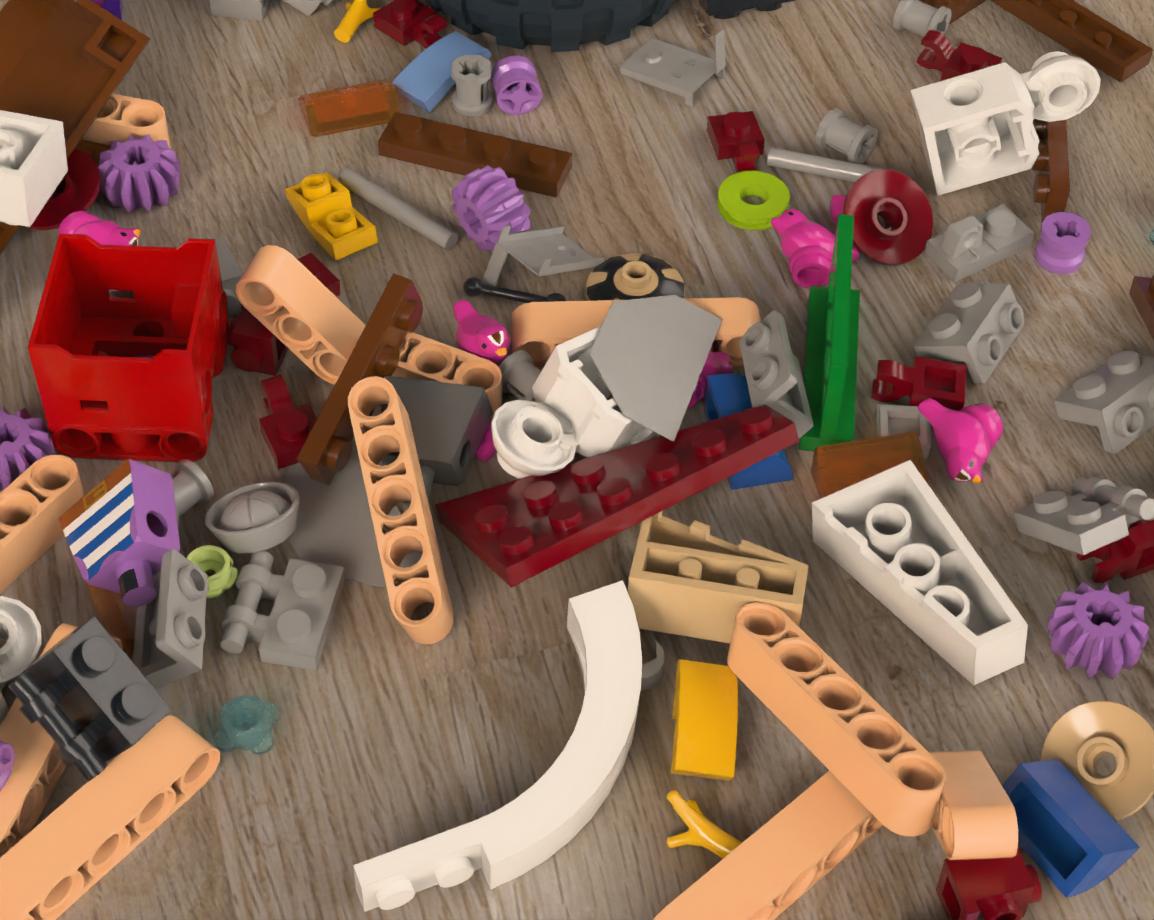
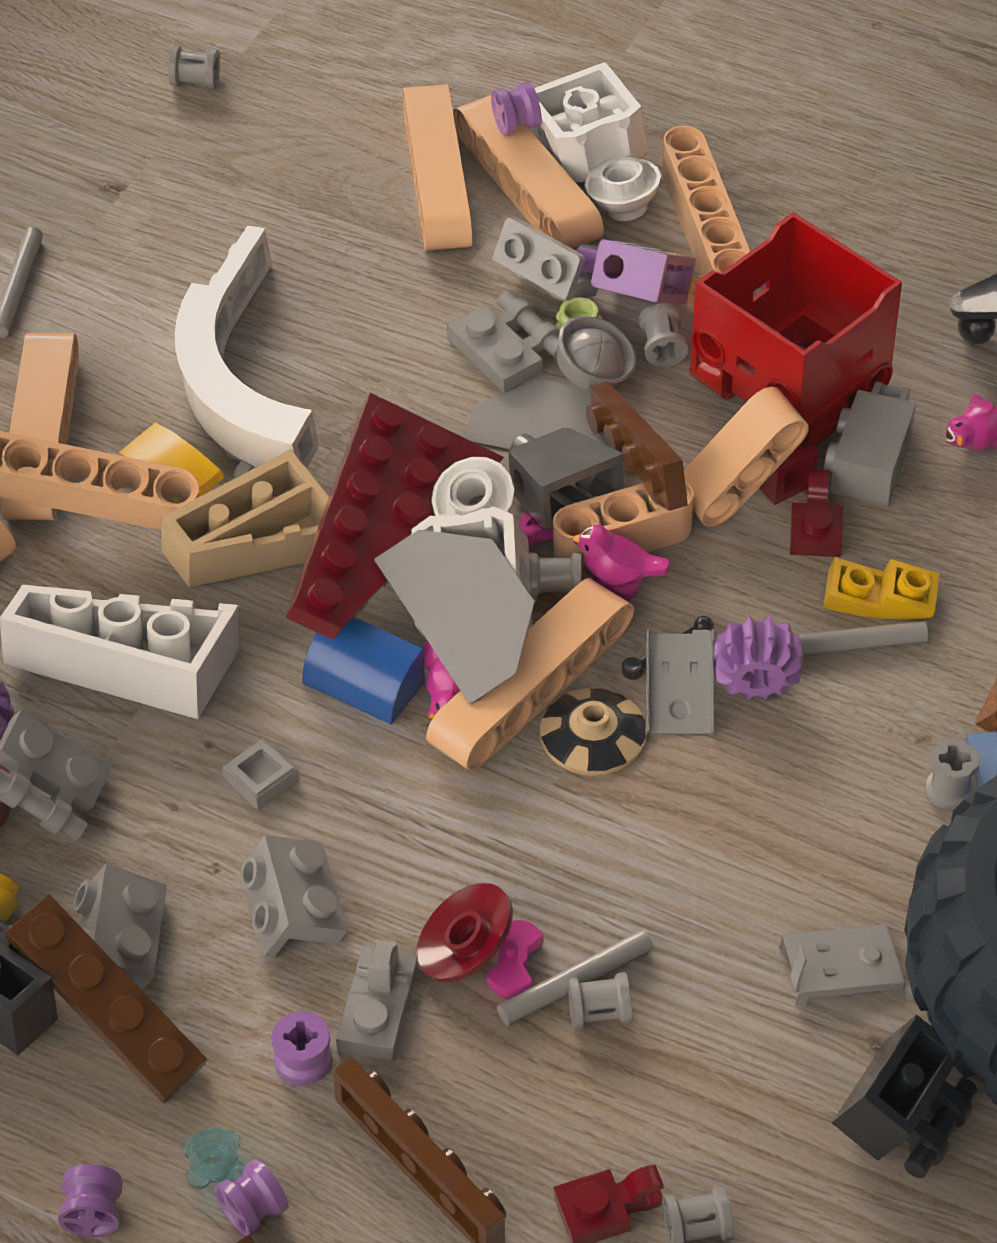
camera: 135 degrees right, 0 degrees up
(89, 698) = (507, 172): black brick -> none
(244, 712) = (436, 272): clear light blue plate -> none
(286, 425) = (675, 429): dark red plate -> none
(406, 532) = (499, 398): light nougat beam -> none
(464, 150) = (866, 734): reddish brown plate -> none
(516, 85) = (920, 806): medium lavender wheel -> none
(701, 830) = (105, 420): yellow bar -> none
(736, 137) = (688, 932): dark red plate -> none
(752, 183) = (602, 908): lime piece -> none
(775, 372) = (369, 683): light grey bracket -> none
(807, 247) = (496, 854): dark pink animal -> none
(832, 348) = (367, 757): green fence -> none
(853, 461) = (245, 714): clear orange slope -> none
(925, 379) = (277, 810): dark red plate -> none
(963, 436) = (200, 785): dark pink animal -> none
(983, 120) = (464, 1058): white brick -> none

